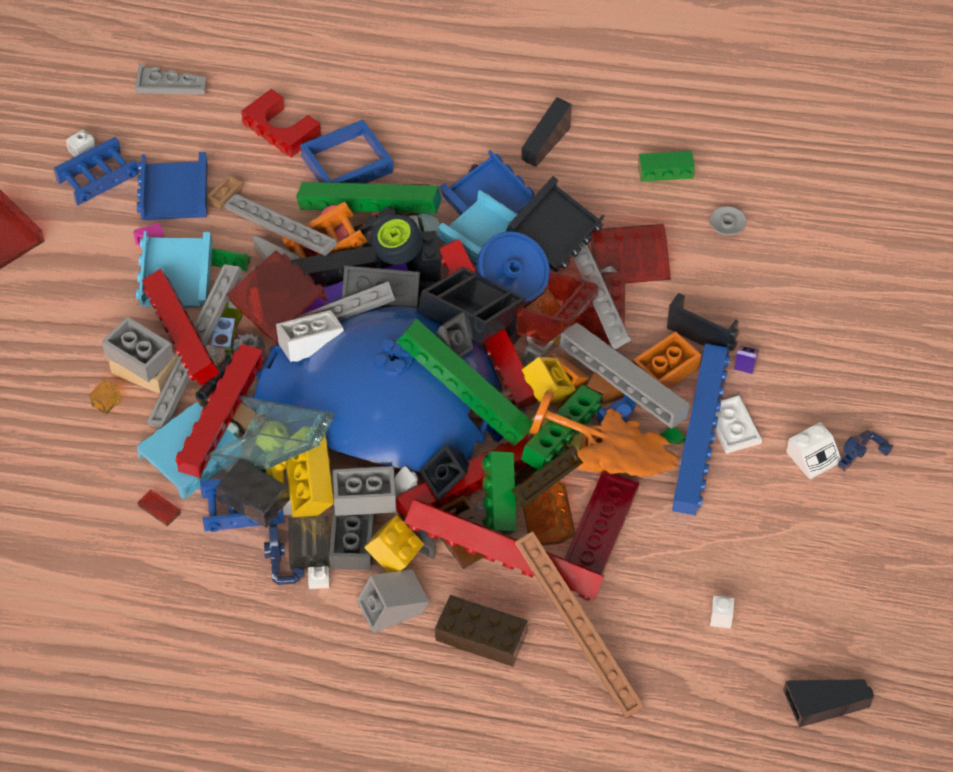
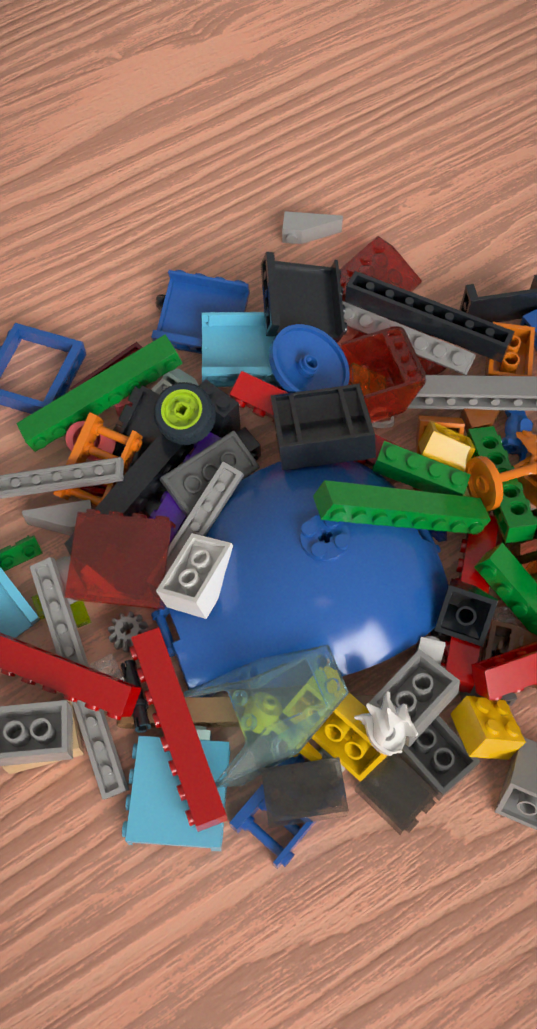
camera: 40 degrees left, 10 degrees up
(105, 396) = (31, 807): clear yellow brick -> none
(159, 507) = (207, 885): clear red tile -> none
(228, 325) = (96, 634): light blue piece -> none
(274, 550) = (374, 833): dark blue animal -> none
(318, 577) = (437, 820): white tile -> none
(323, 480) = (387, 726): none -> white hair
(456, 335) = (348, 466): dark grey slope -> none
(512, 379) = (419, 471): none -> green brick
(531, 354) = (396, 433): light grey tile -> none
(548, 132) = (193, 223): black slope -> none
(626, 294) = (429, 316): none -> black brick
(628, 188) = (307, 227): none -> light grey slope
(666, 166) = (318, 187): green brick -> none
(727, 220) = (416, 200): light grey dish -> none

